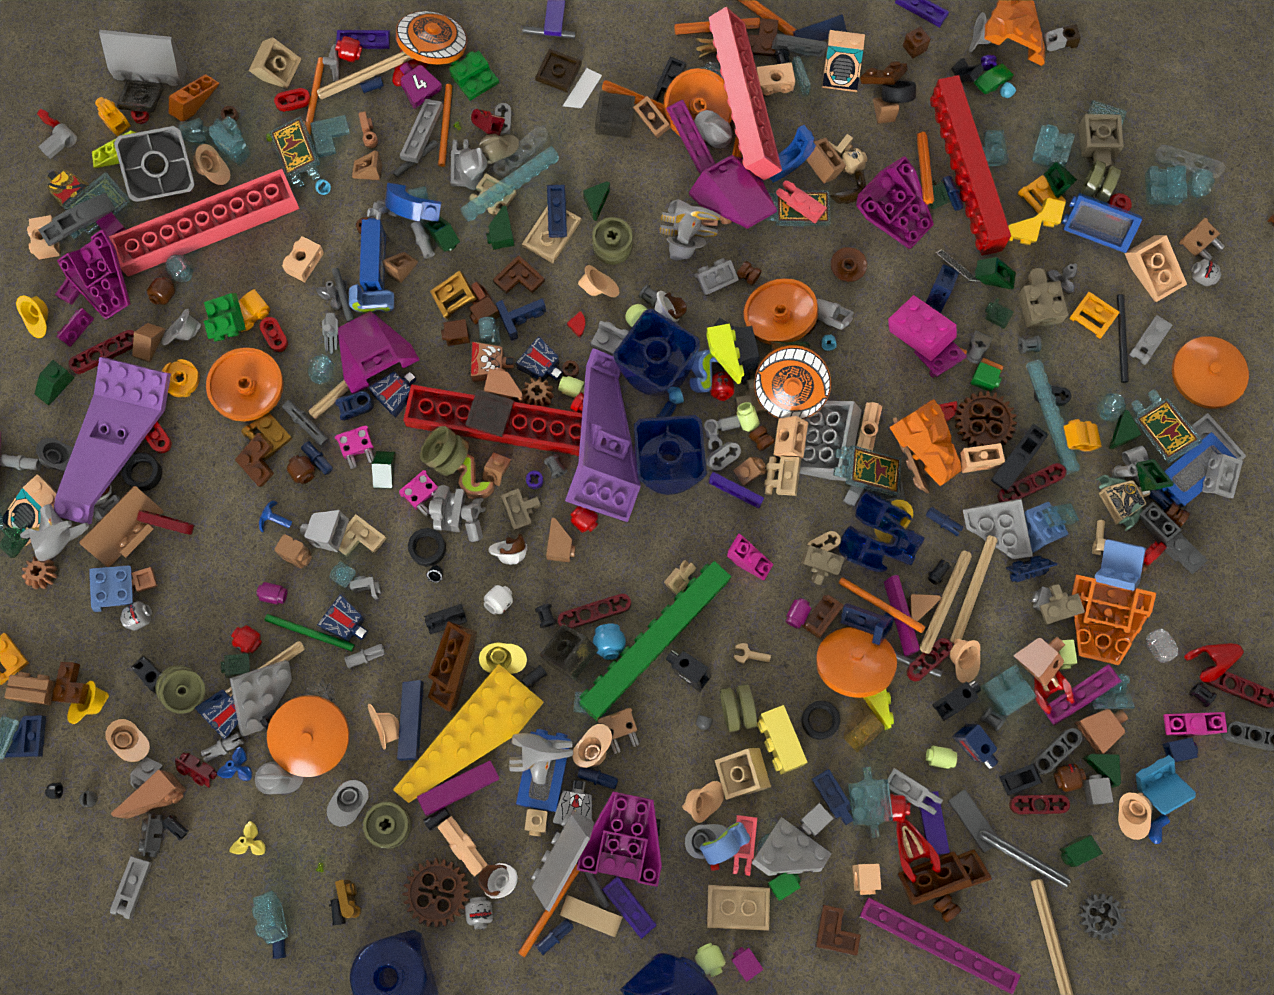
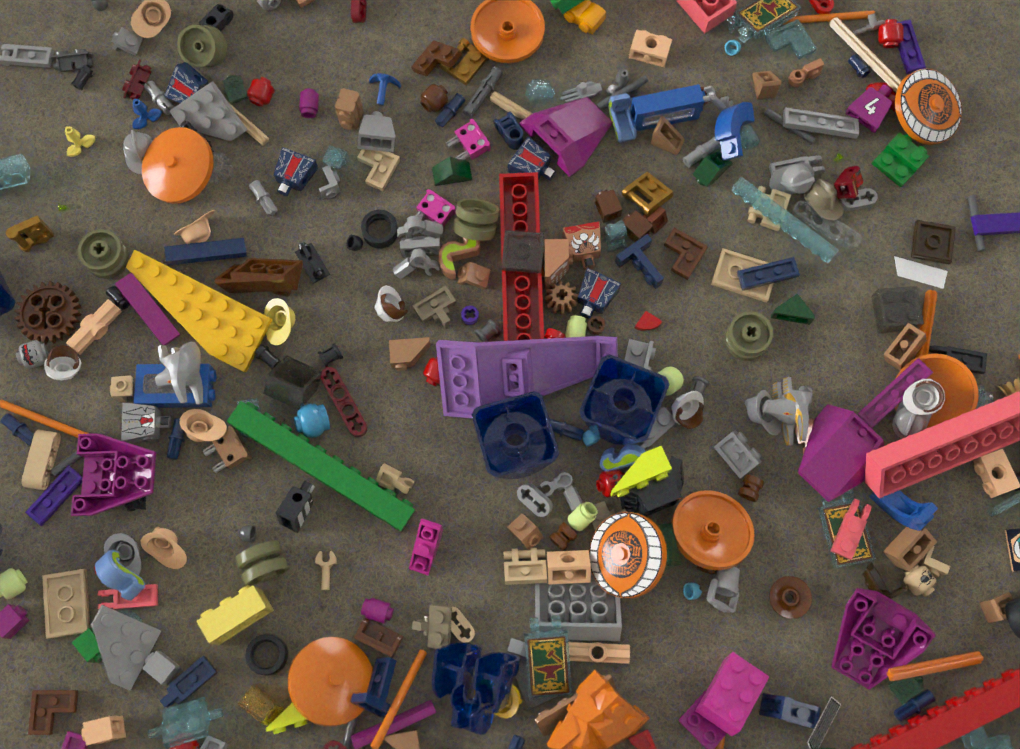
camera: 80 degrees right, 0 degrees up
(157, 792) = (108, 51): nougat slope -> none
(274, 335) = (565, 43): red plate -> none
(309, 632) = (279, 143): green axle -> none
(347, 802) = (119, 213): light grey piece -> none
(445, 125) = (835, 145): orange piece -> none
(498, 599) = (338, 306): white head -> none
(500, 230) = (731, 223): dark green slope -> none
(562, 858) = (85, 416): light grey slope -> none
(596, 282) = (697, 332): light nougat piece -> none
(703, 111) = (924, 397): none -> white piece
(736, 490) = (499, 518): dark purple tile -> none
(742, 773) = (198, 582): tan slope -> none

